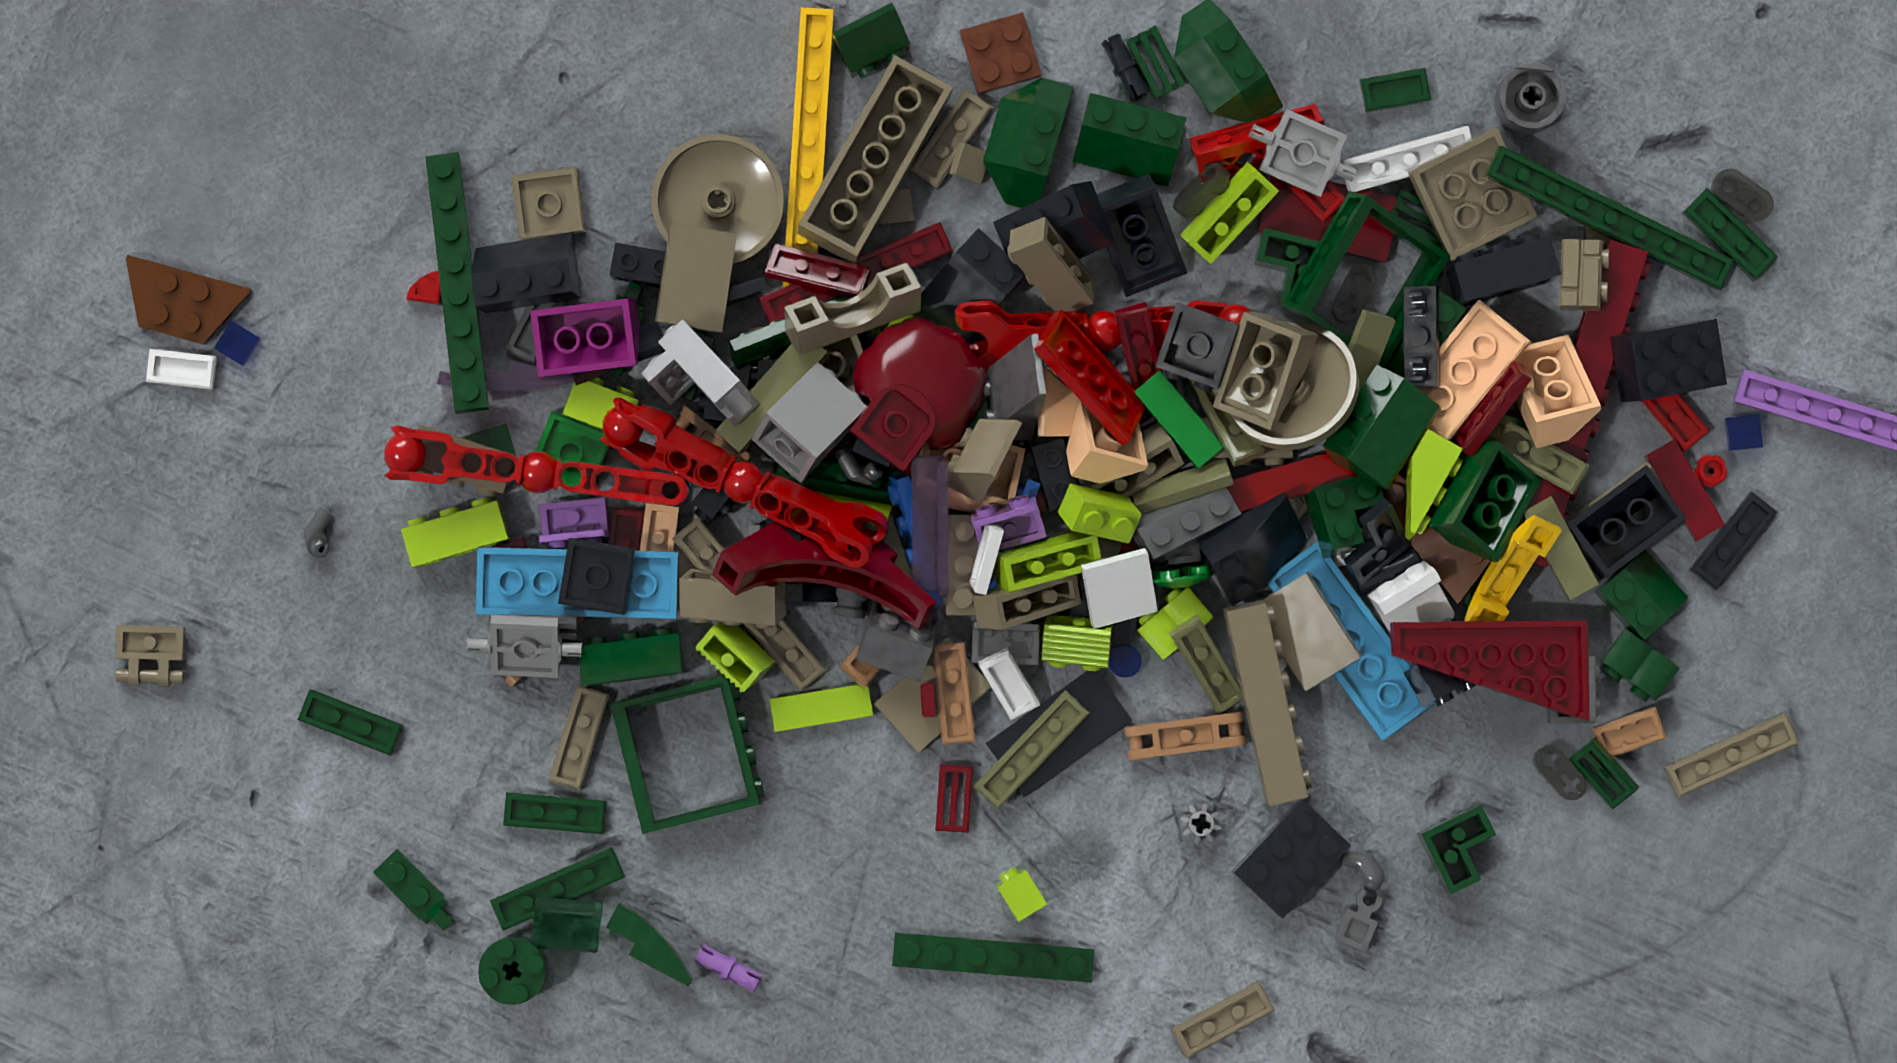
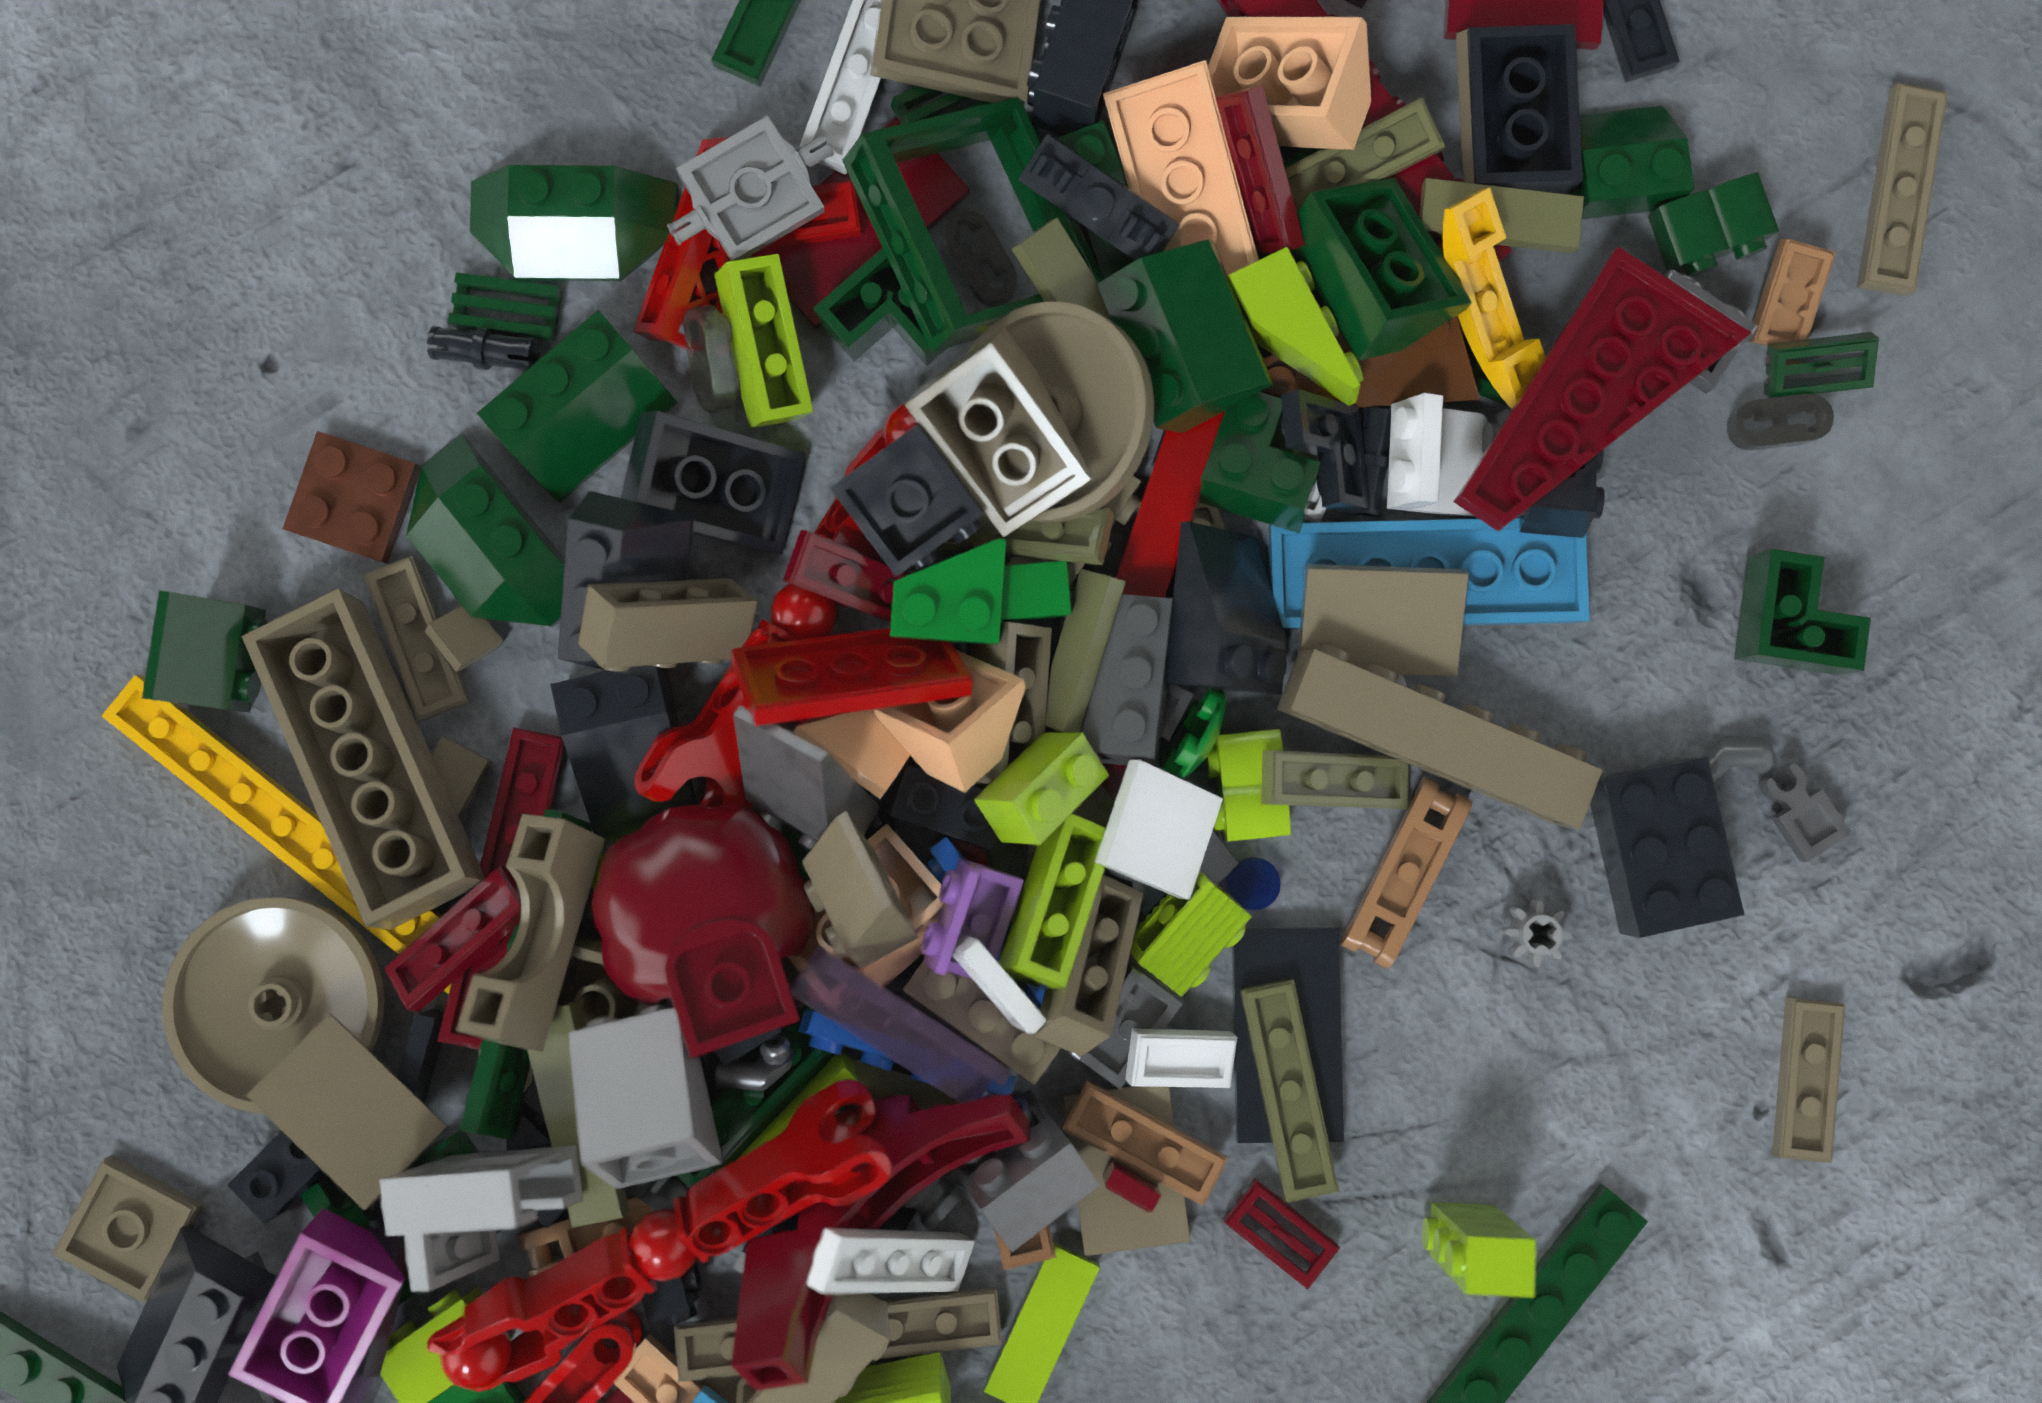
camera: 50 degrees left, 0 degrees up
(812, 601) = (889, 1261): none -> white plate
(1164, 403) = (953, 598): none -> green wing

